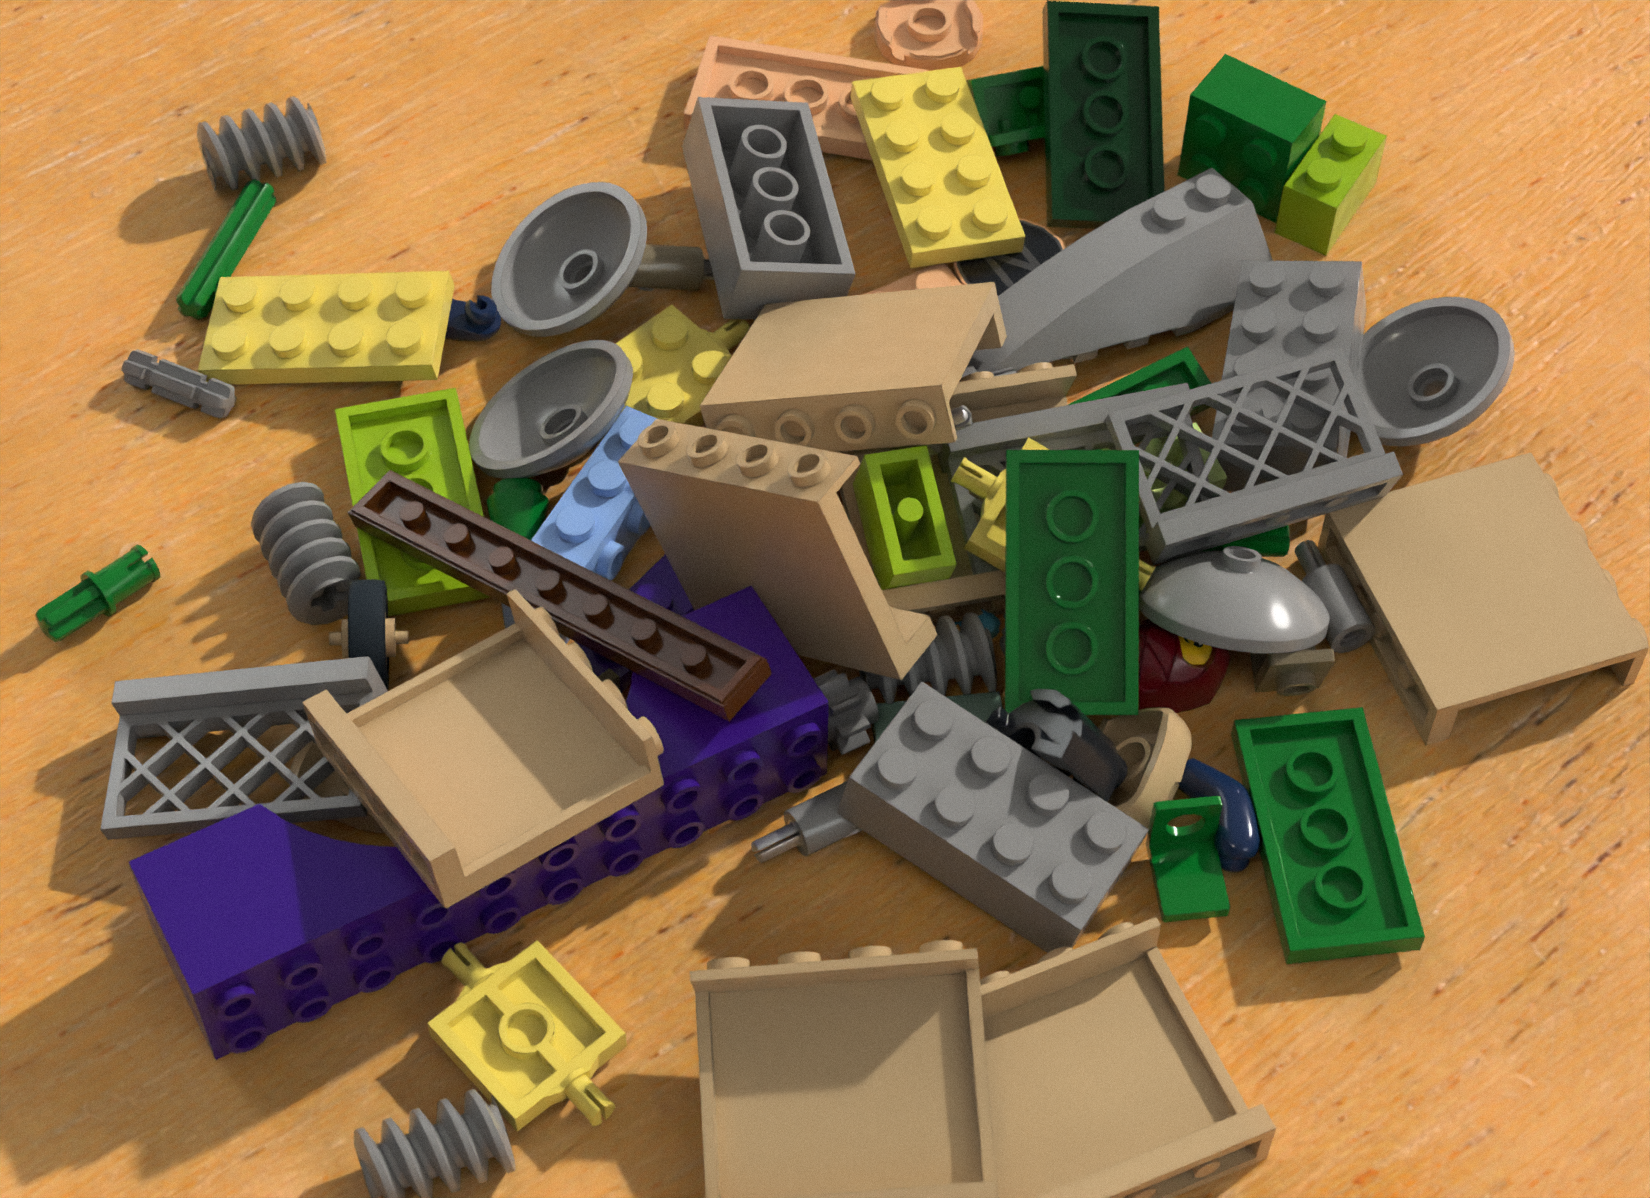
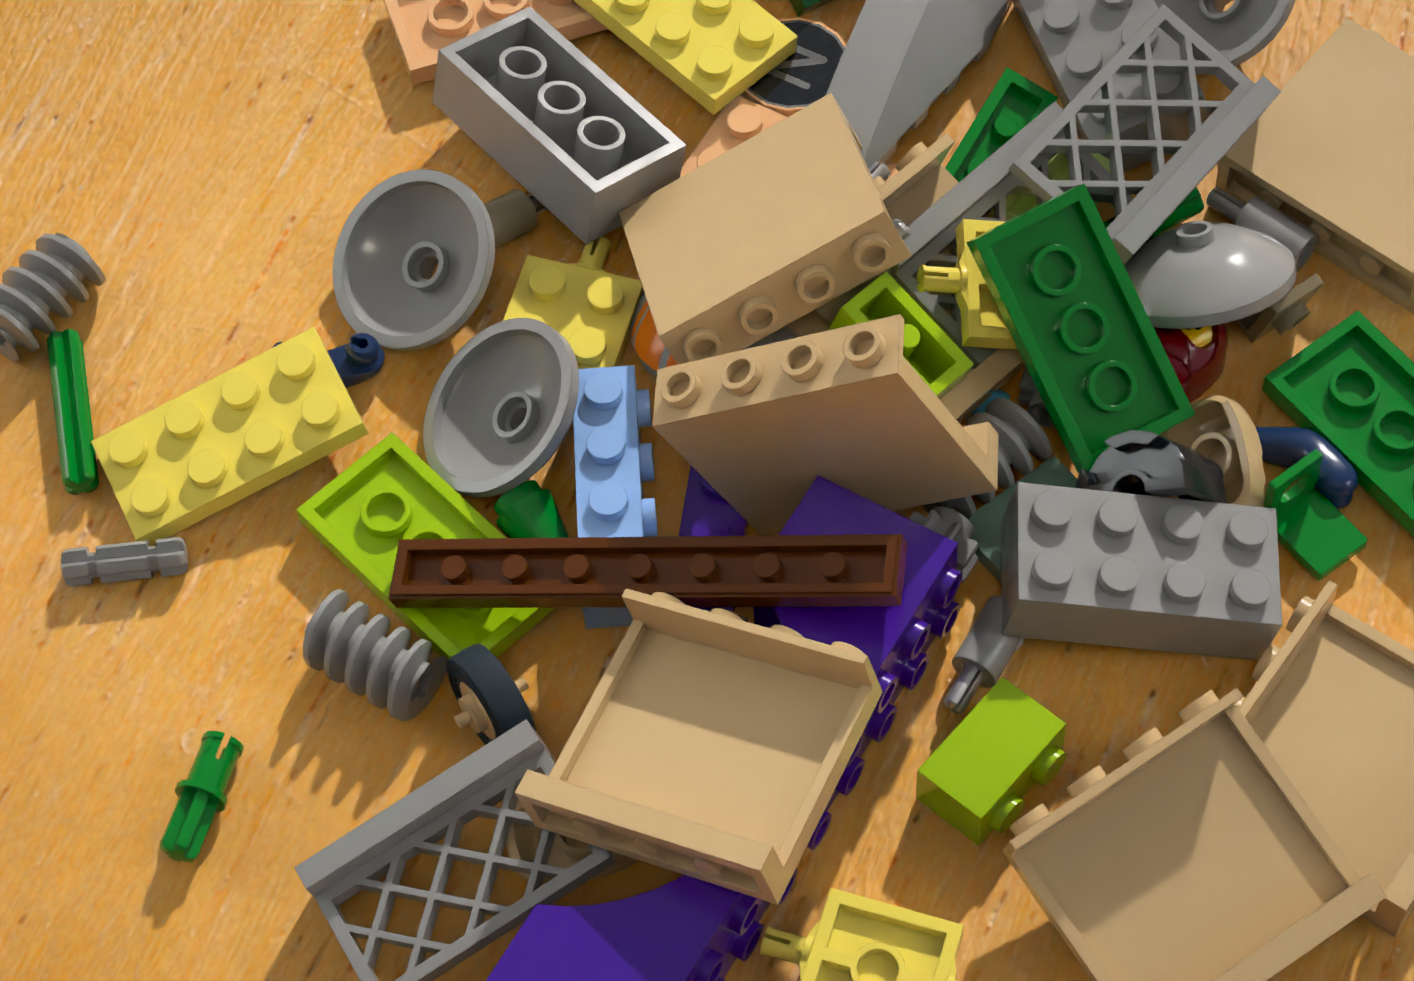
camera: 25 degrees left, 5 degrees up
(754, 909) = (992, 762): none -> lime brick

